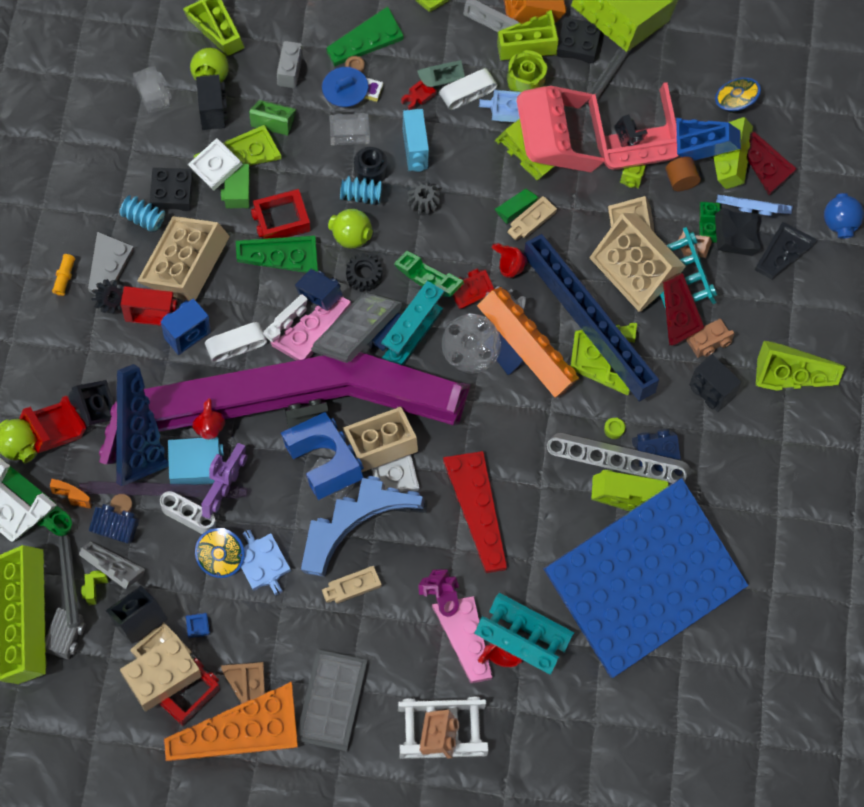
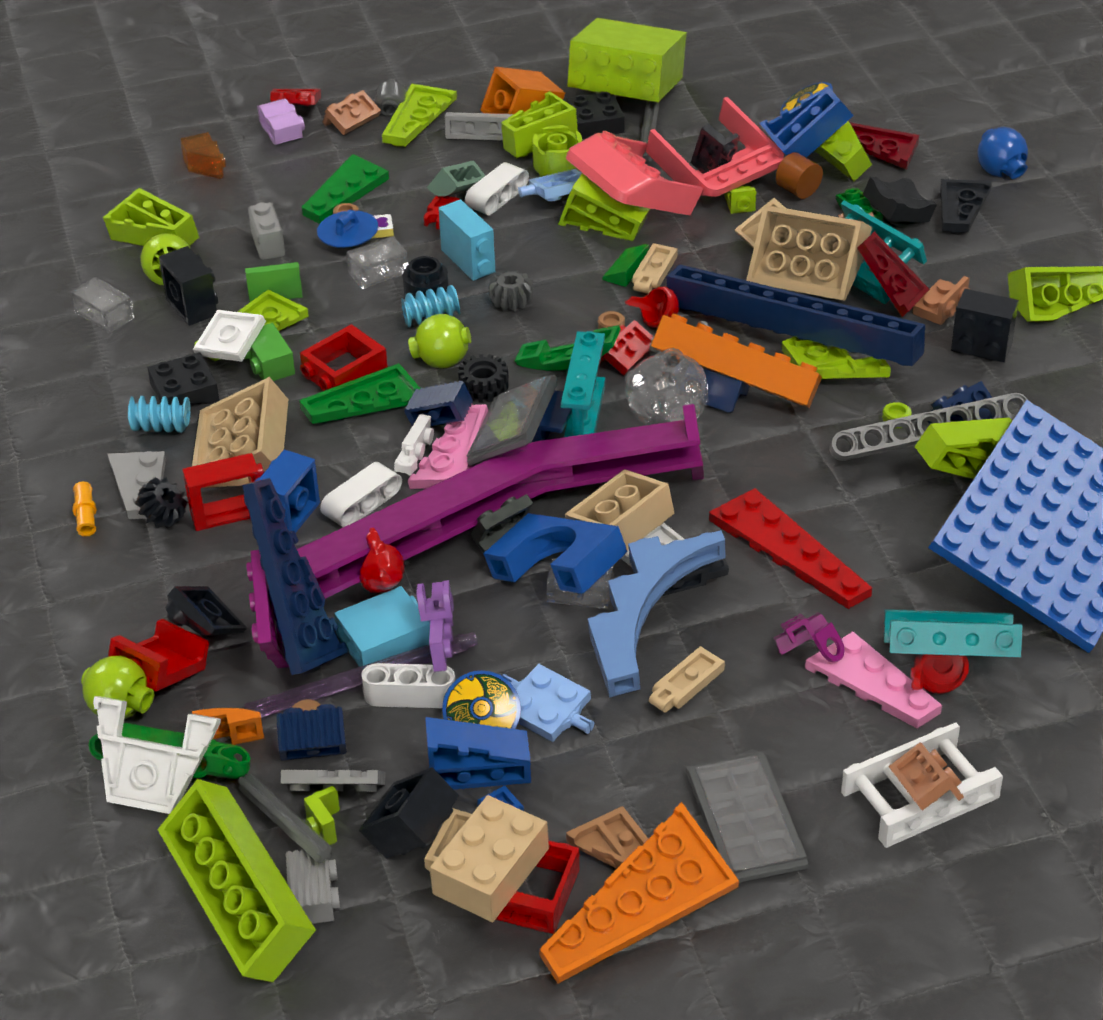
camera: 20 degrees left, 25 degrees down
(198, 587) = (477, 754): none -> blue wedge
(476, 256) = (610, 319): none -> medium nougat tile
(747, 205) = (916, 166): light blue wing -> none

